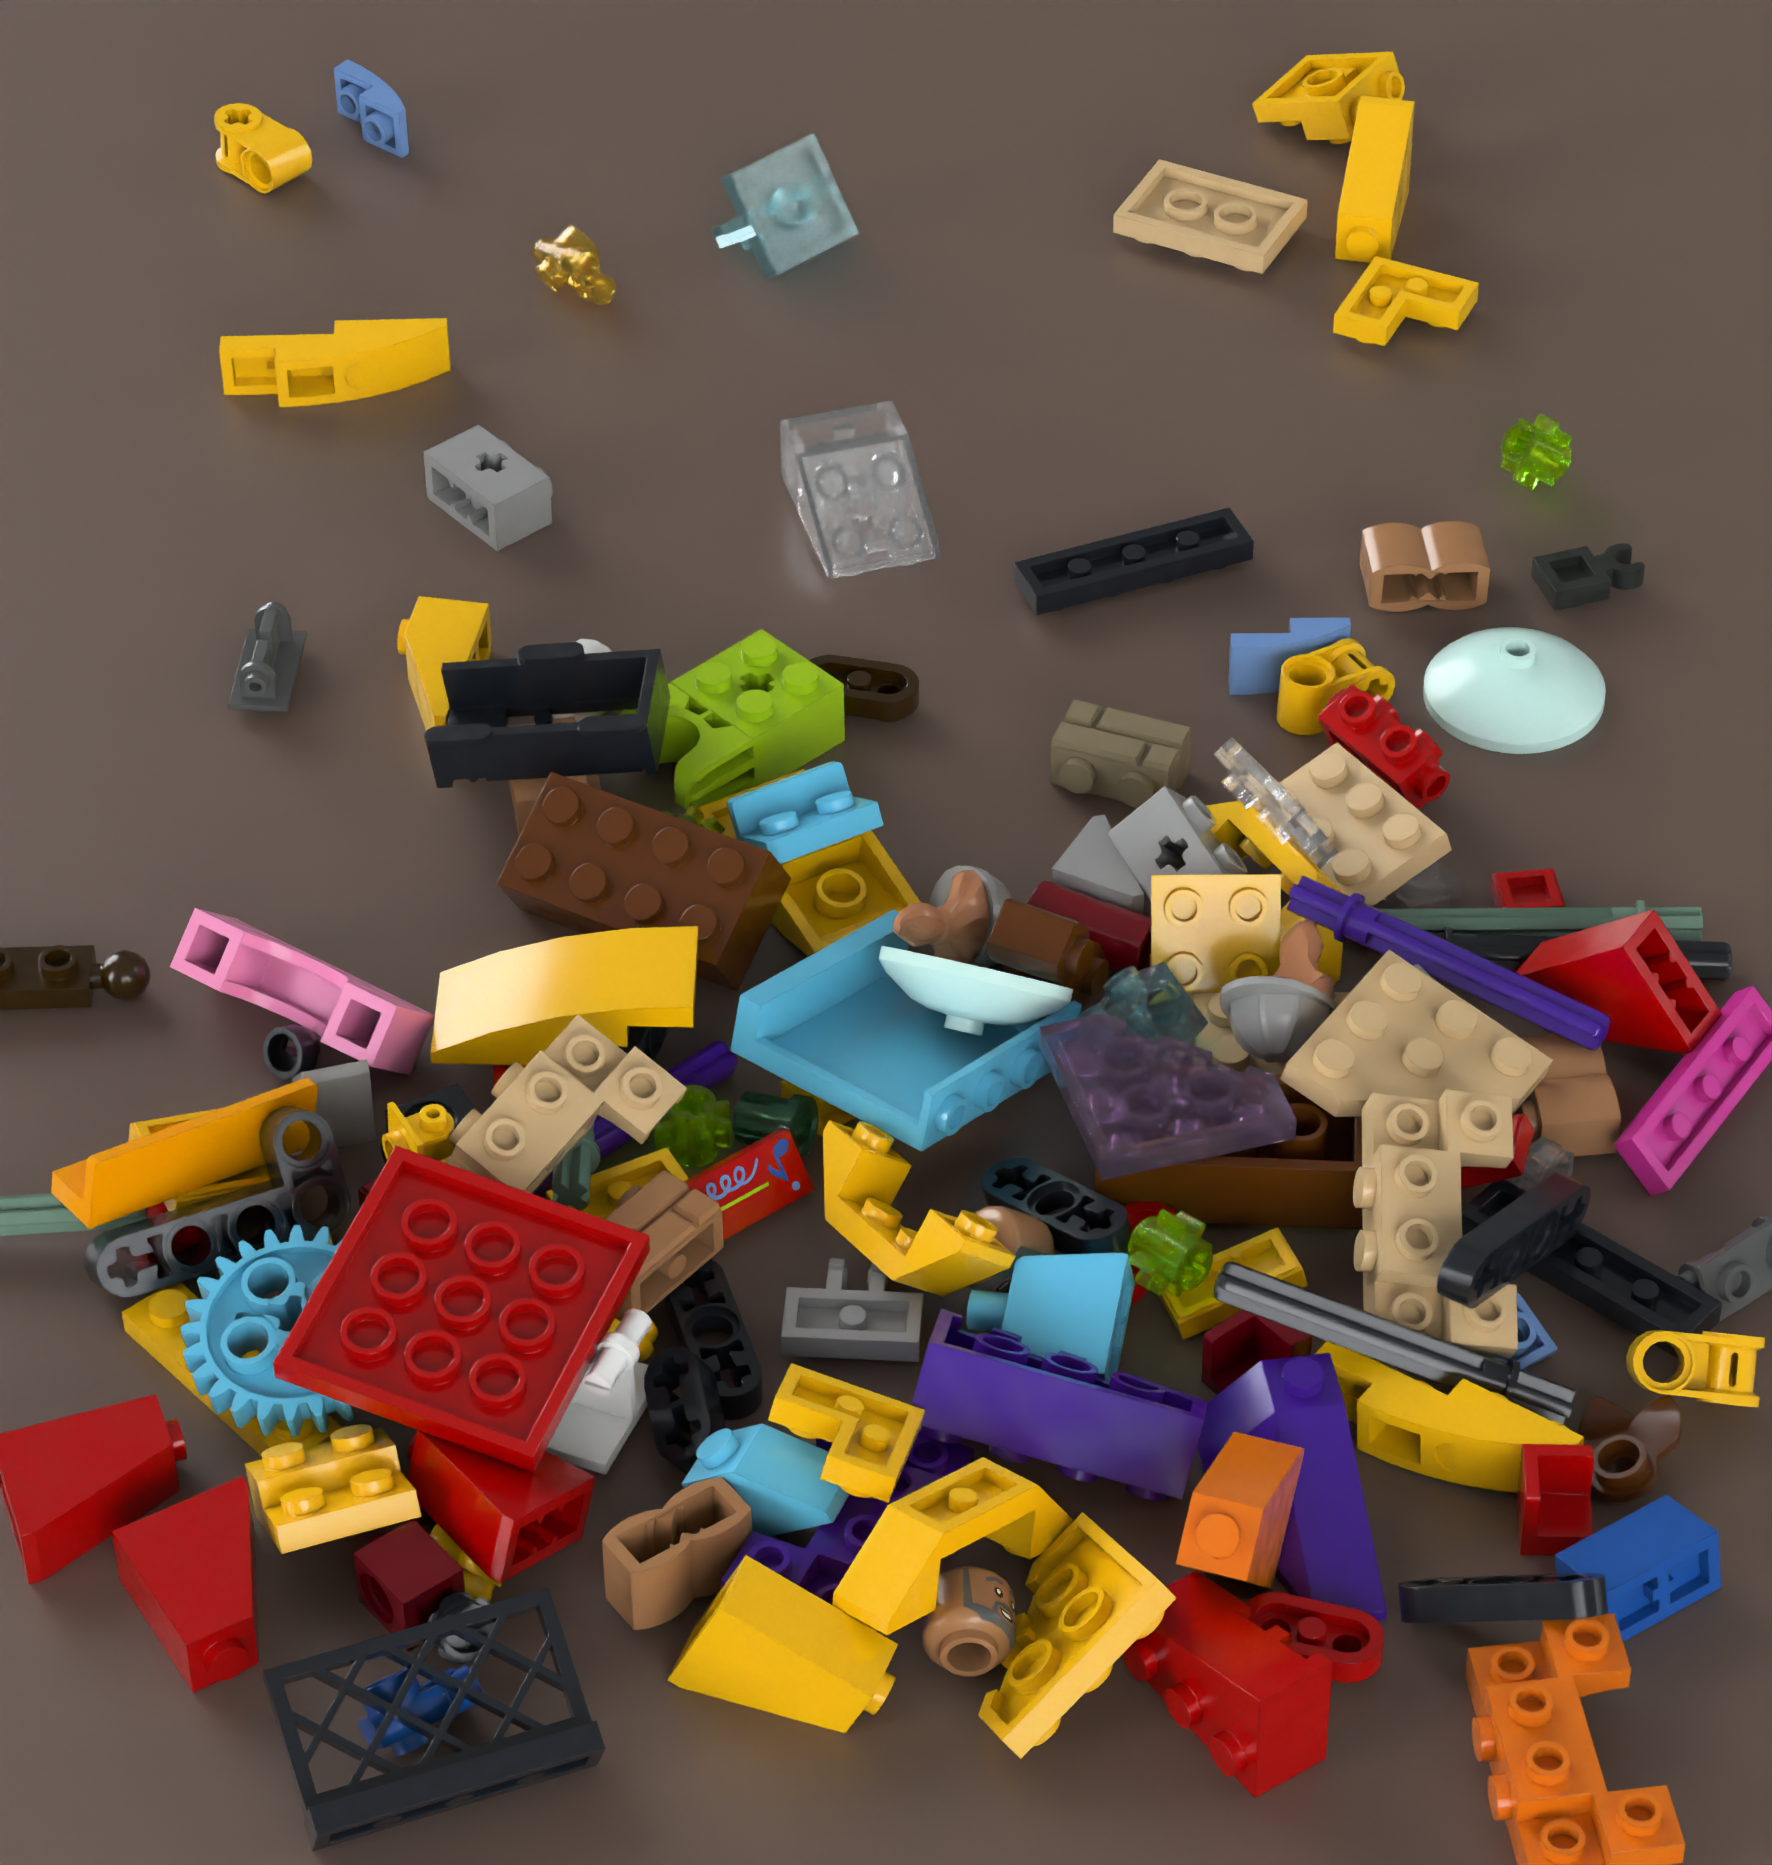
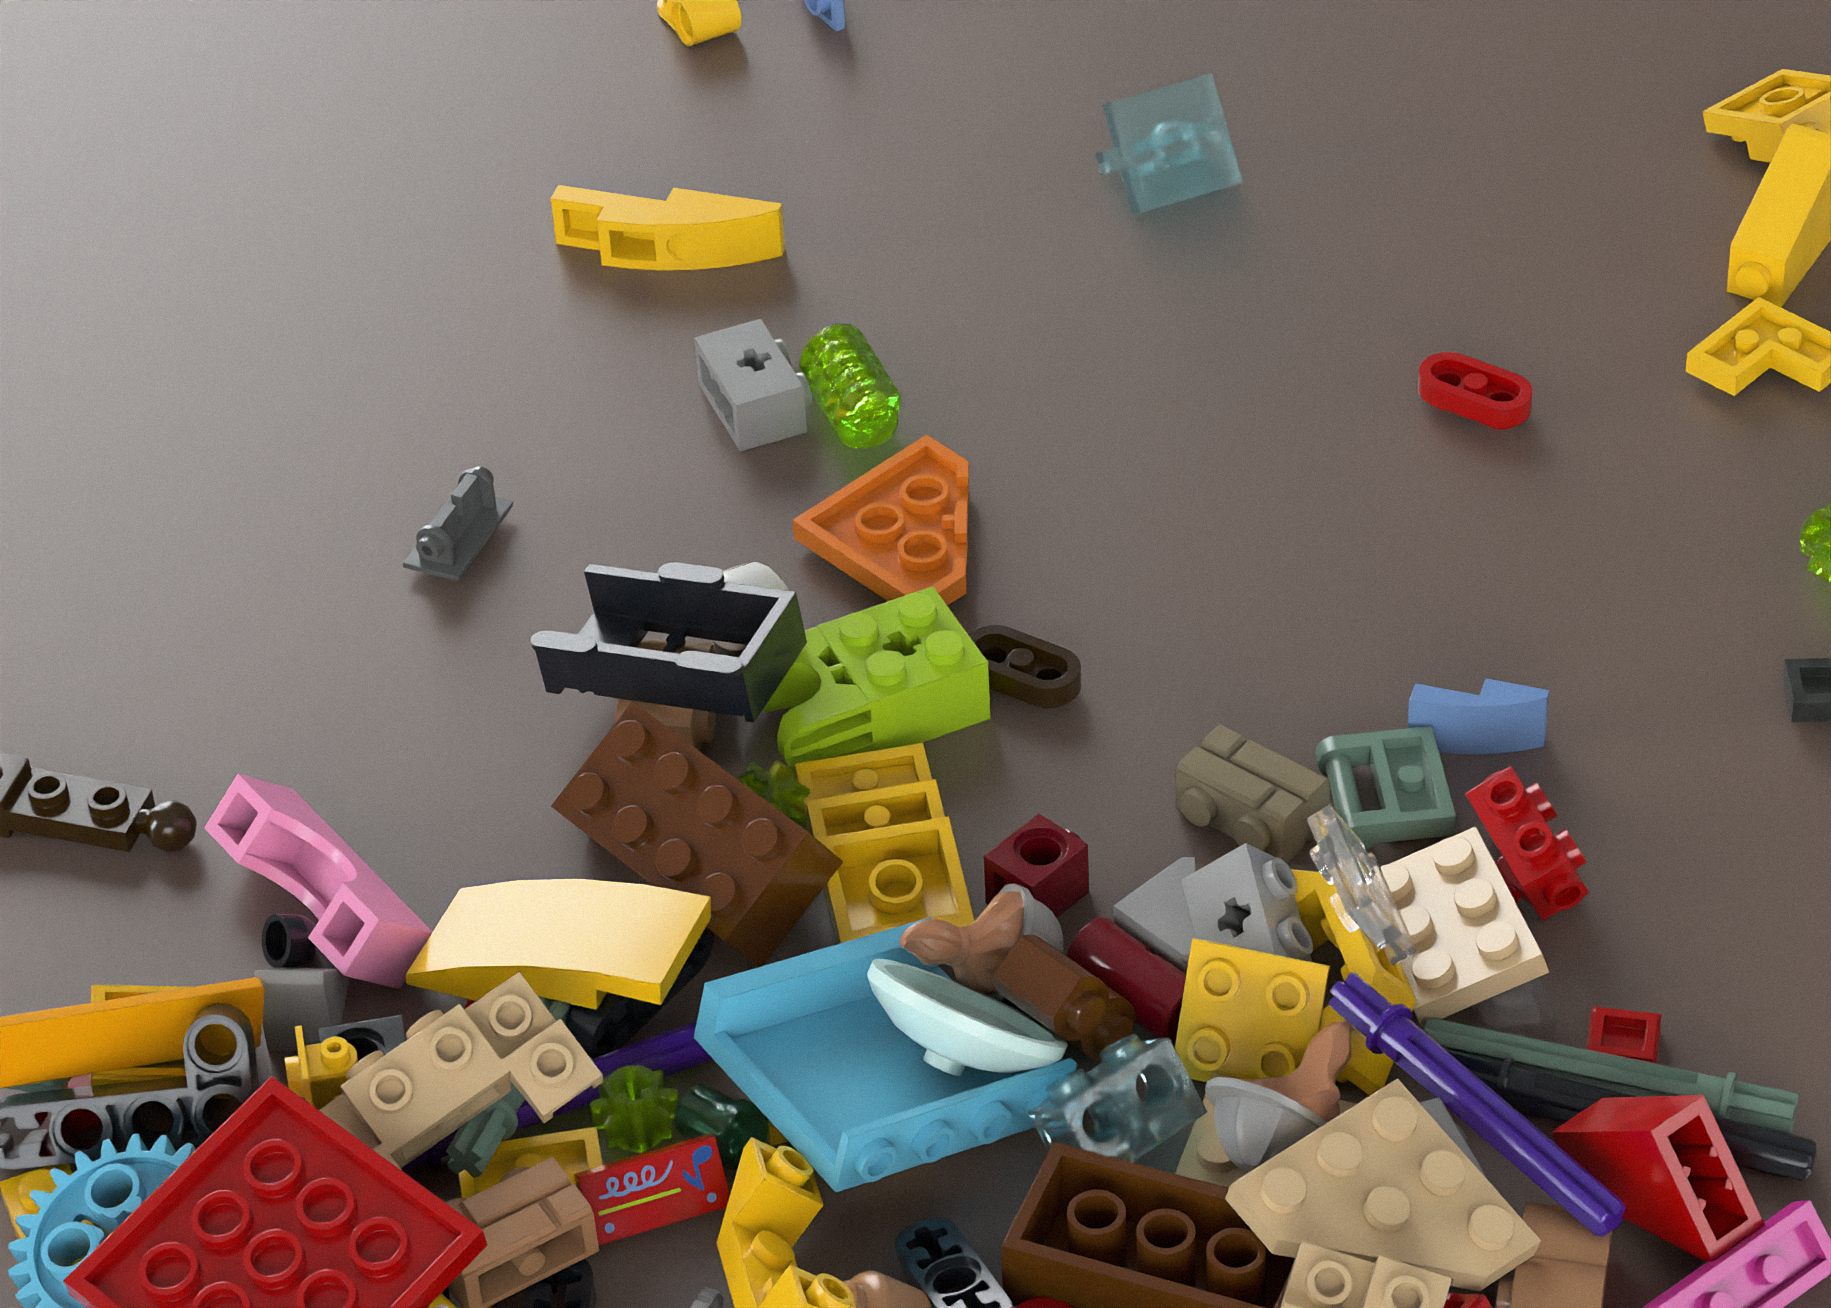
camera: 20 degrees right, 0 degrees up
(436, 635) = (630, 534): yellow slope -> none
(574, 263) = (936, 165): clear yellow plate -> none
(587, 471) = (851, 386): none -> clear neon green piece
(686, 586) = (898, 524): none -> orange plate
(802, 813) = (879, 795): medium azure bracket -> none
(858, 489) = (1109, 455): clear slope -> none
(956, 840) = (1043, 860): none -> dark red brick
(1133, 561) = (1363, 582): black plate -> none
(1157, 379) = (1475, 390): none -> red plate
(1159, 1100) = (1087, 1192): clear purple plate -> none
(1210, 216) = (1607, 224): tan plate -> none
(1242, 710) = (1406, 778): none -> sand green plate
(1315, 677) = (1486, 747): yellow piece -> none
(1424, 566) = (1665, 646): medium nougat brick -> none
(1514, 690) = (1711, 803): light aqua dish -> none

